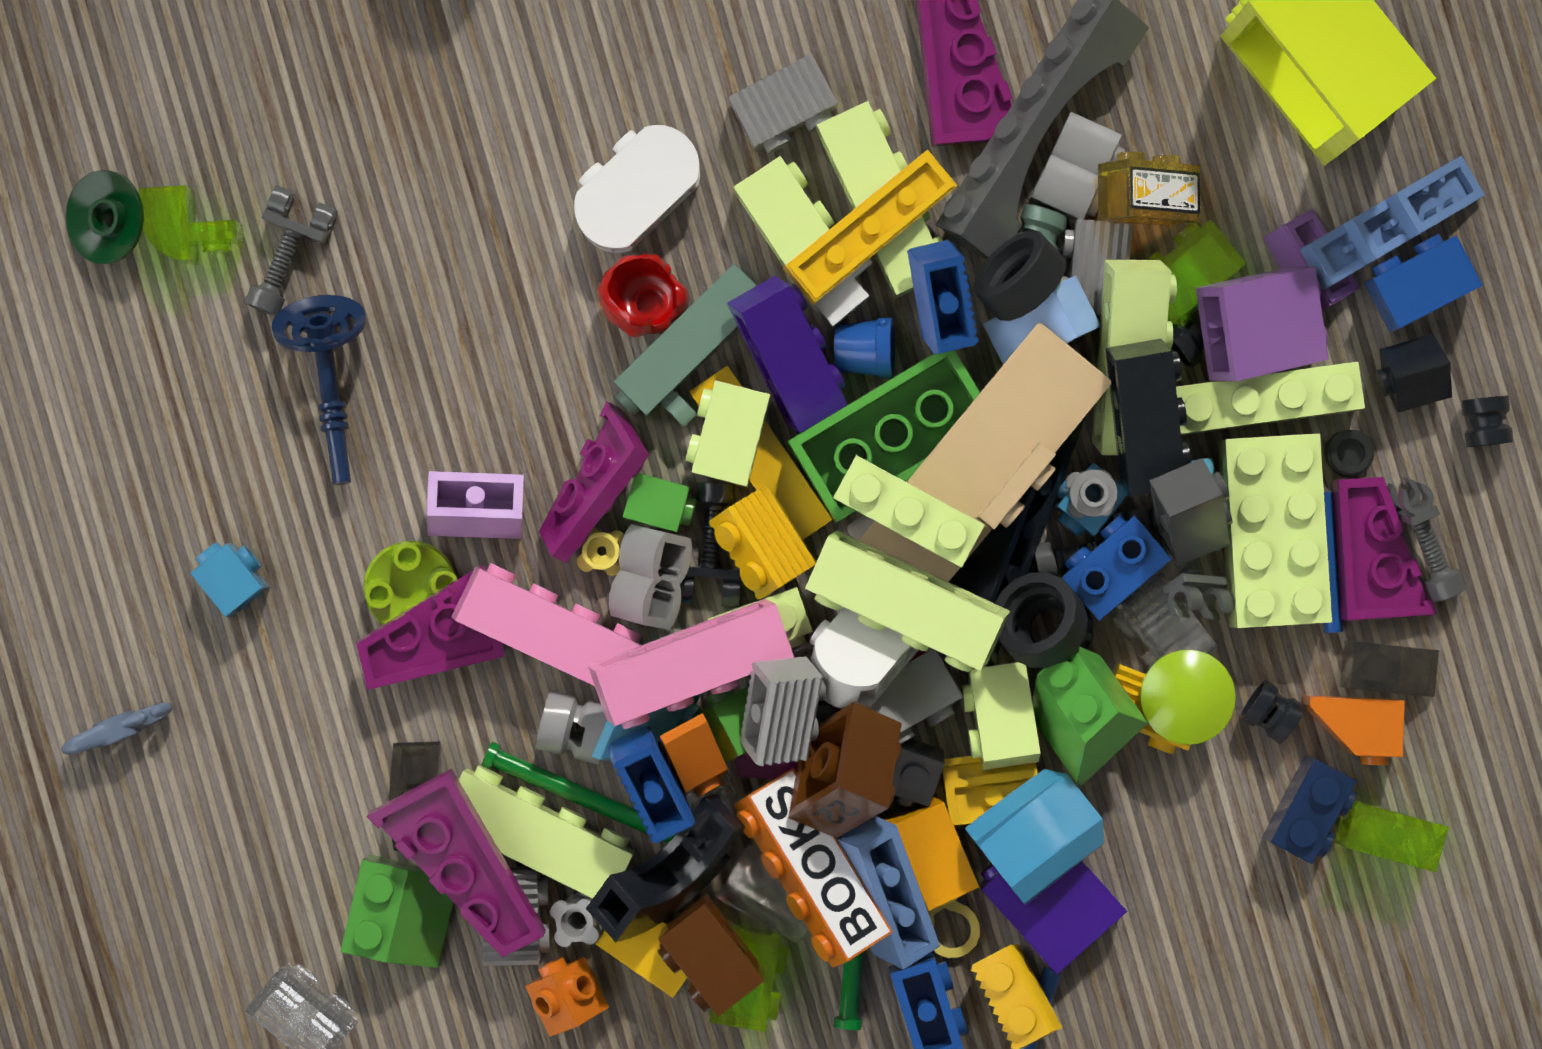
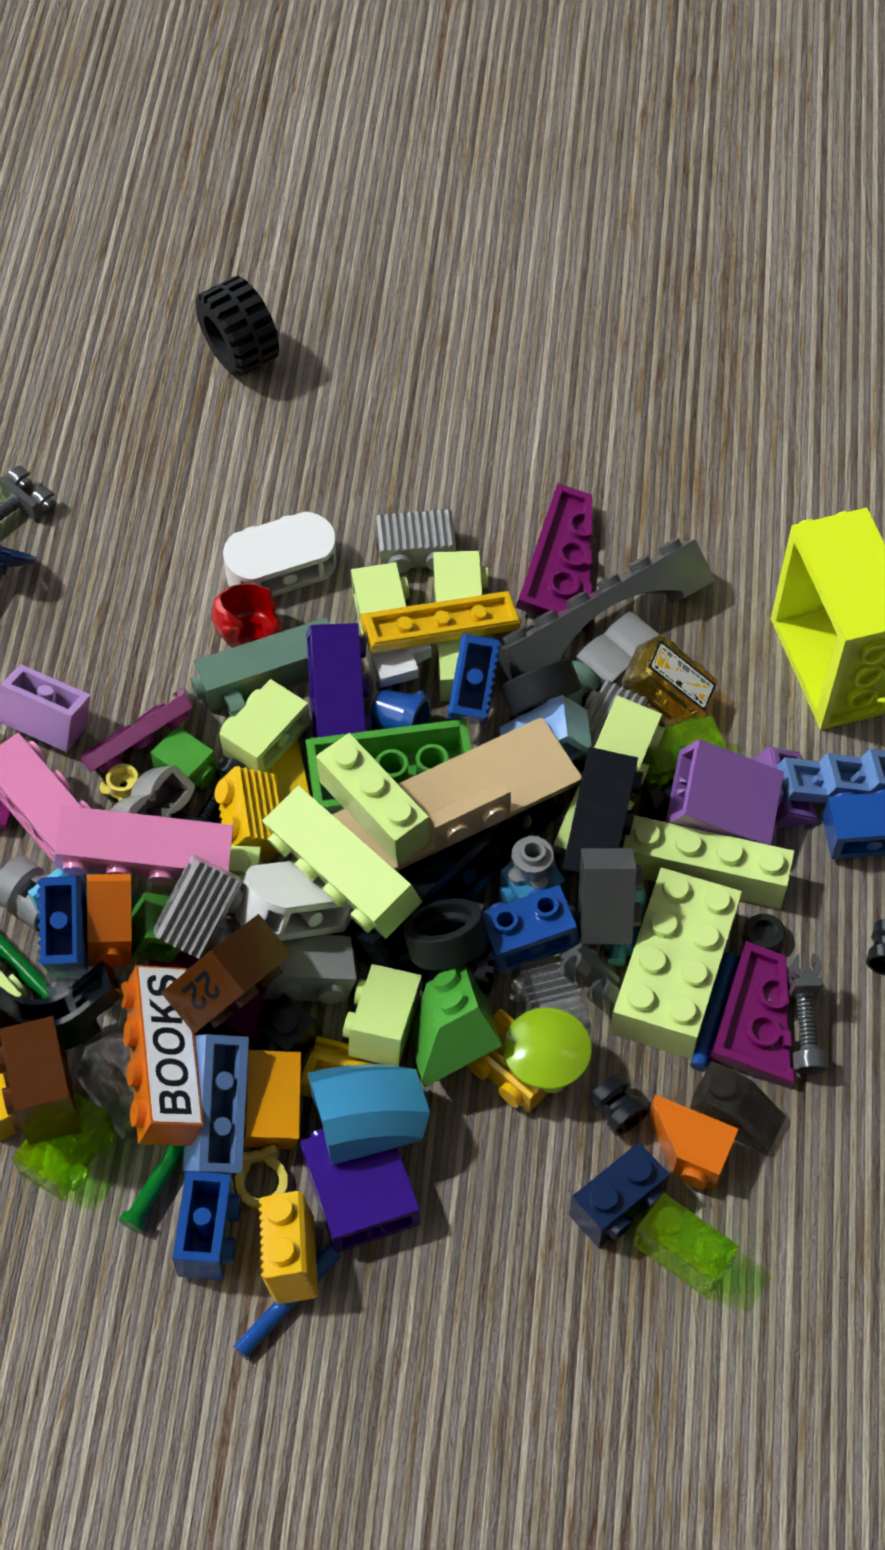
camera: 20 degrees right, 30 degrees down
(1414, 373) = (839, 887): black brick -> none

